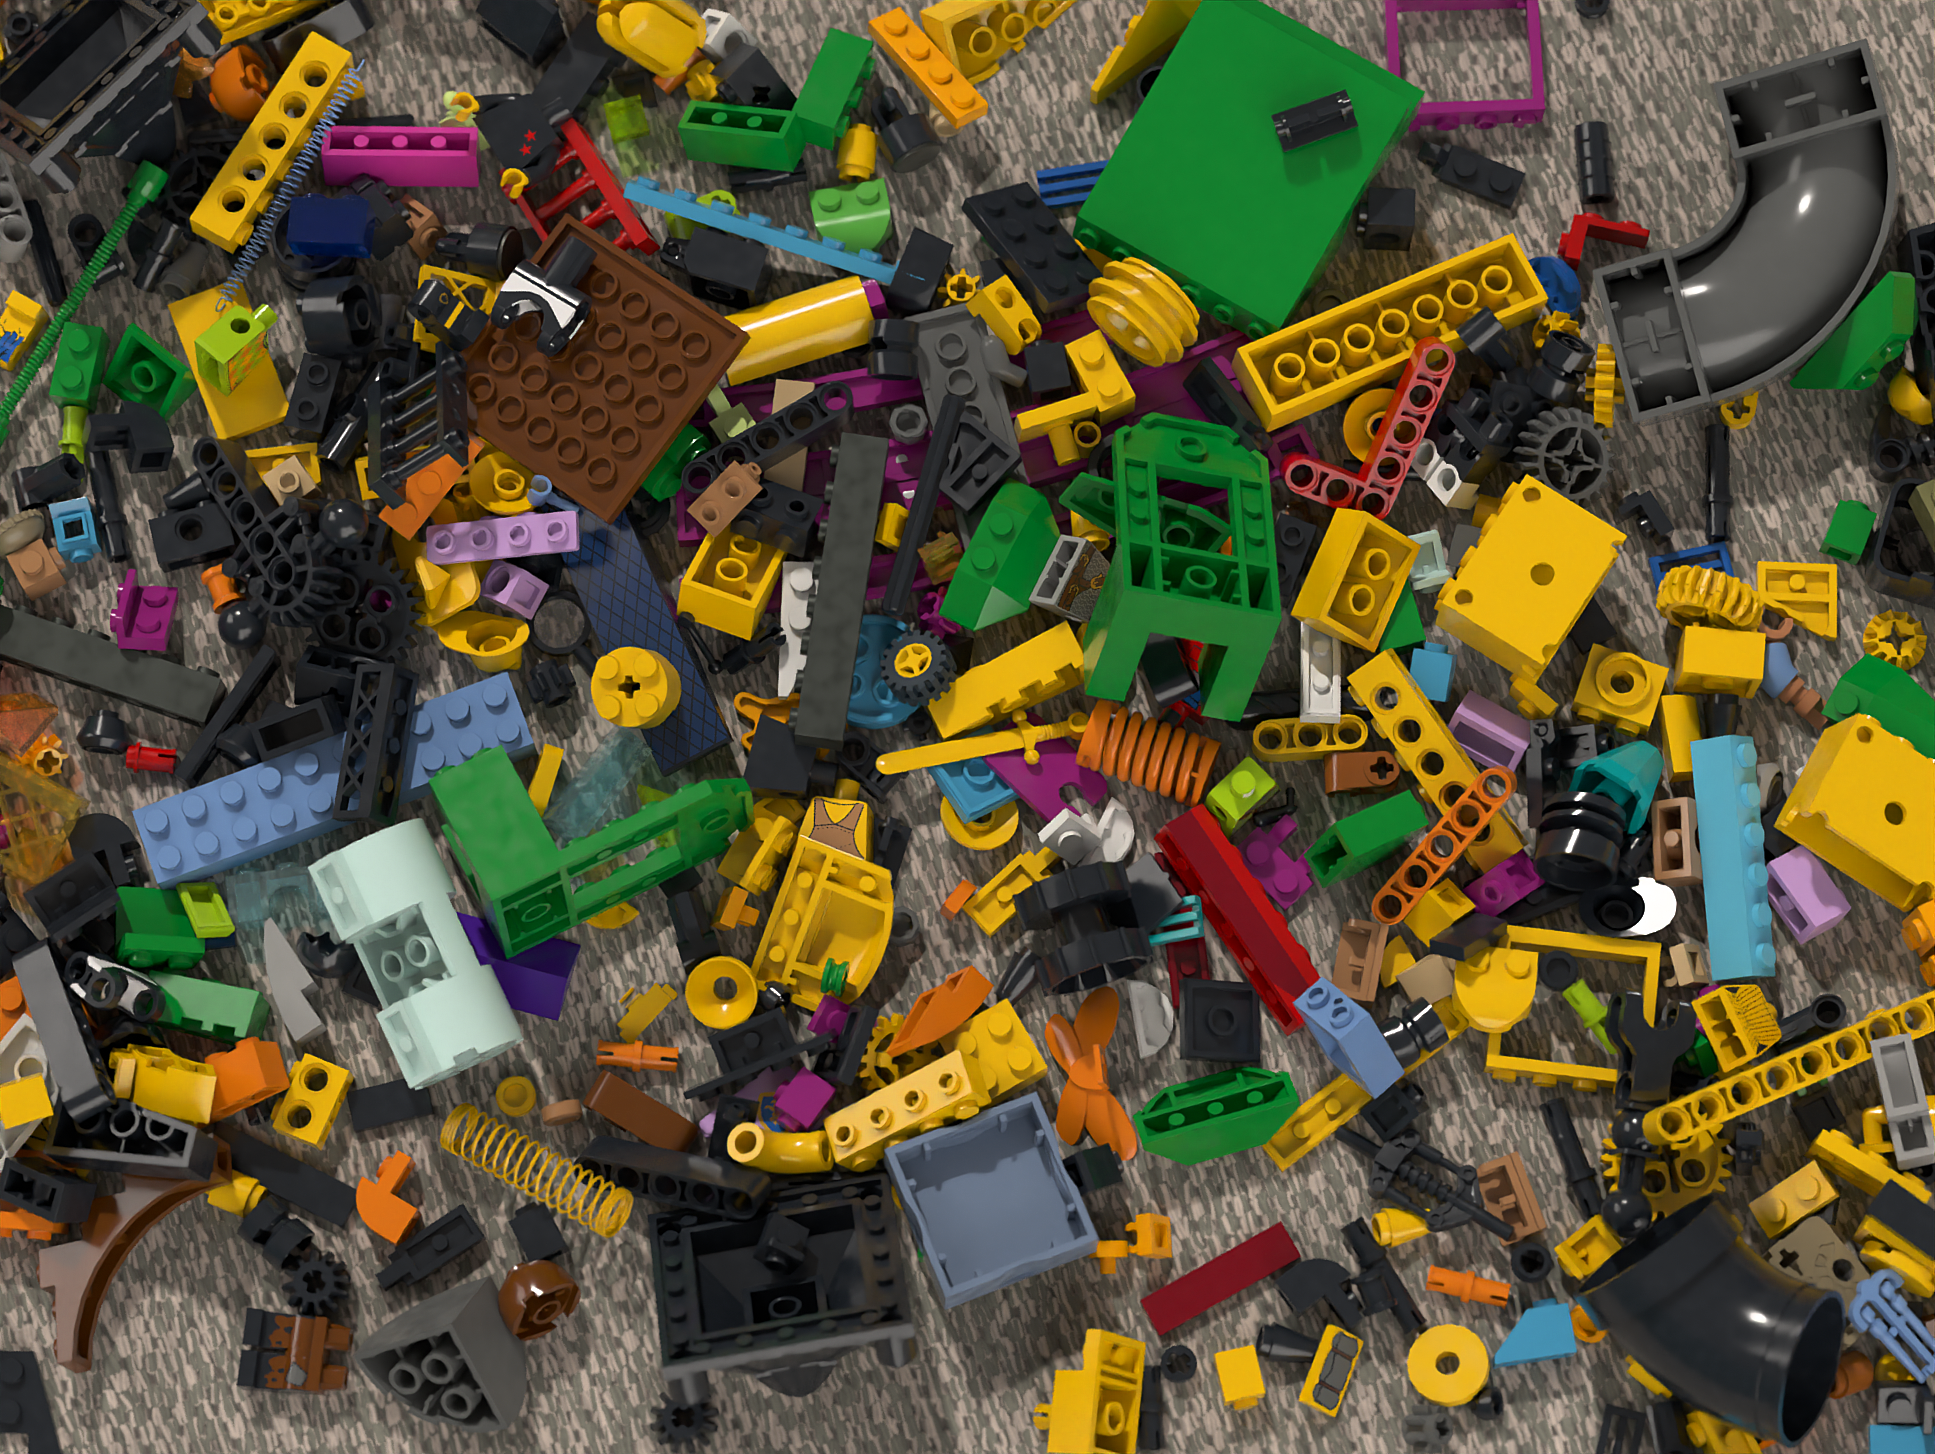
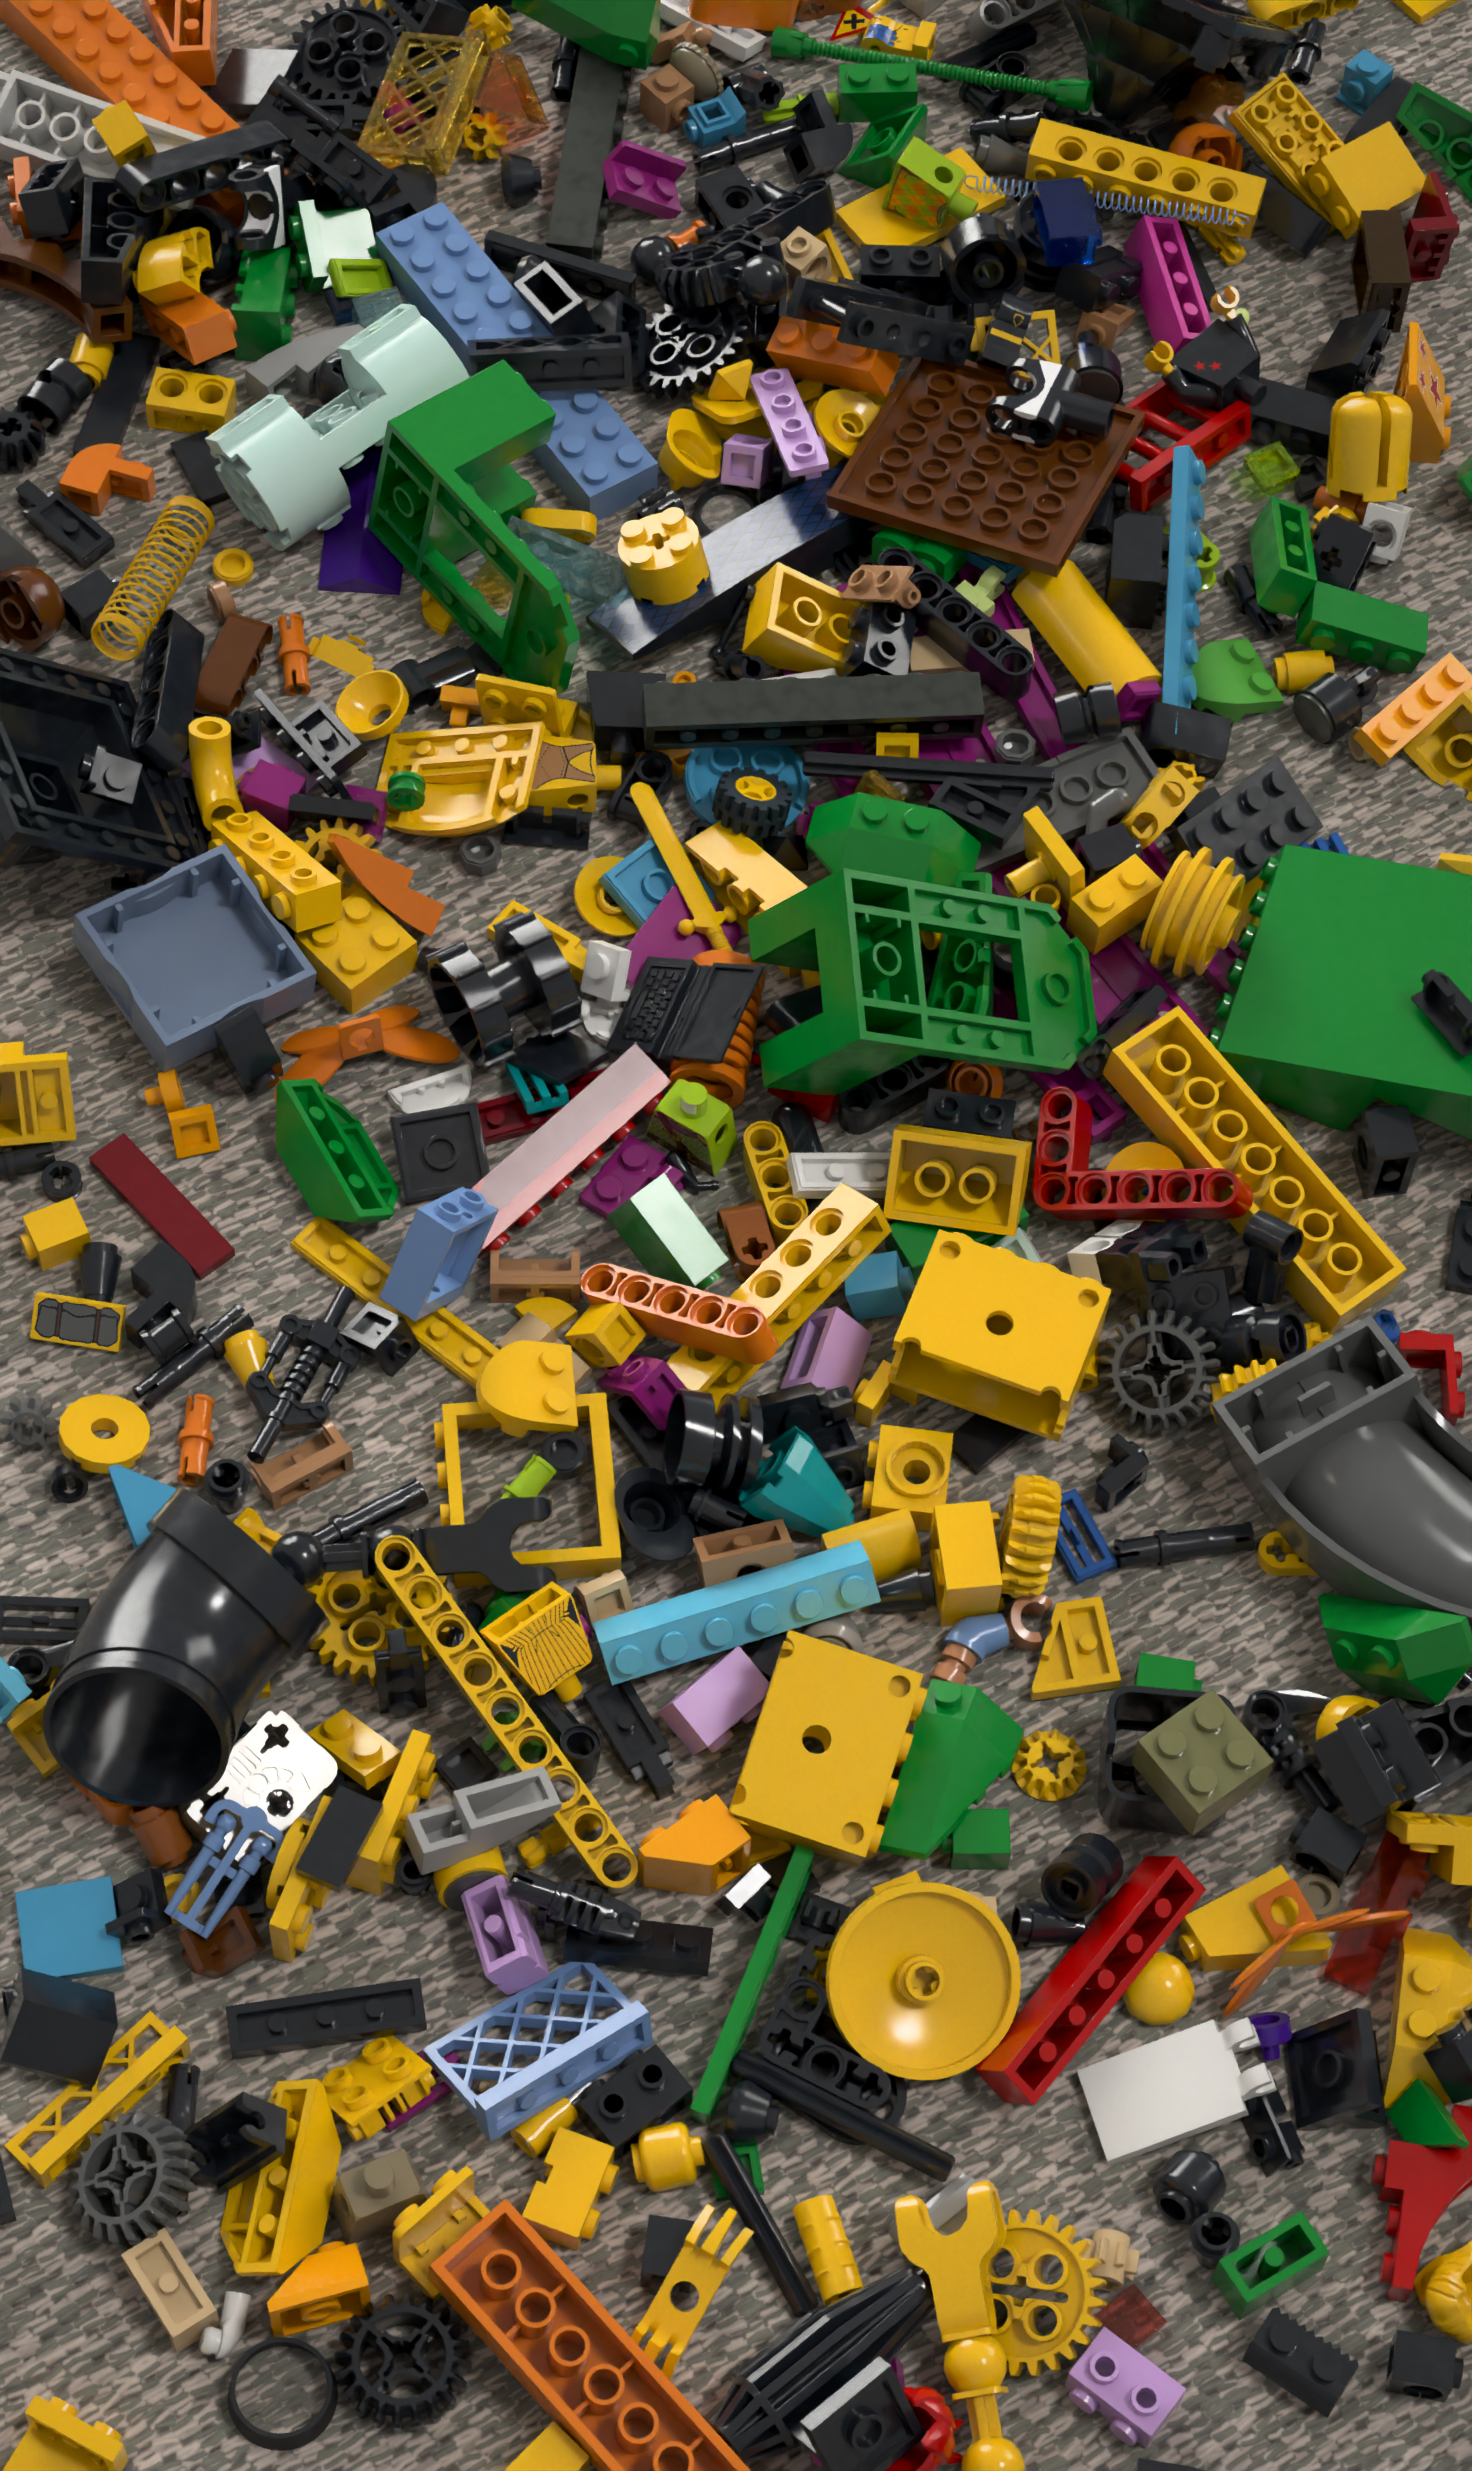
camera: 70 degrees right, 15 degrees down
(124, 1064) = (175, 223): yellow tile -> none
(150, 758) = (504, 214): red pin -> none
(539, 498) = (844, 449): medium blue hand -> none
(775, 995) = (374, 747): black hinge -> none
(957, 899) = (522, 892): orange tile -> none
(1140, 773) = (684, 1009): none -> black piece
(1416, 1030) = (464, 1326): black wheel -> none
(1468, 936) = (578, 1349): black tile -> none
(1815, 970) = (632, 1735): none -> black hinge

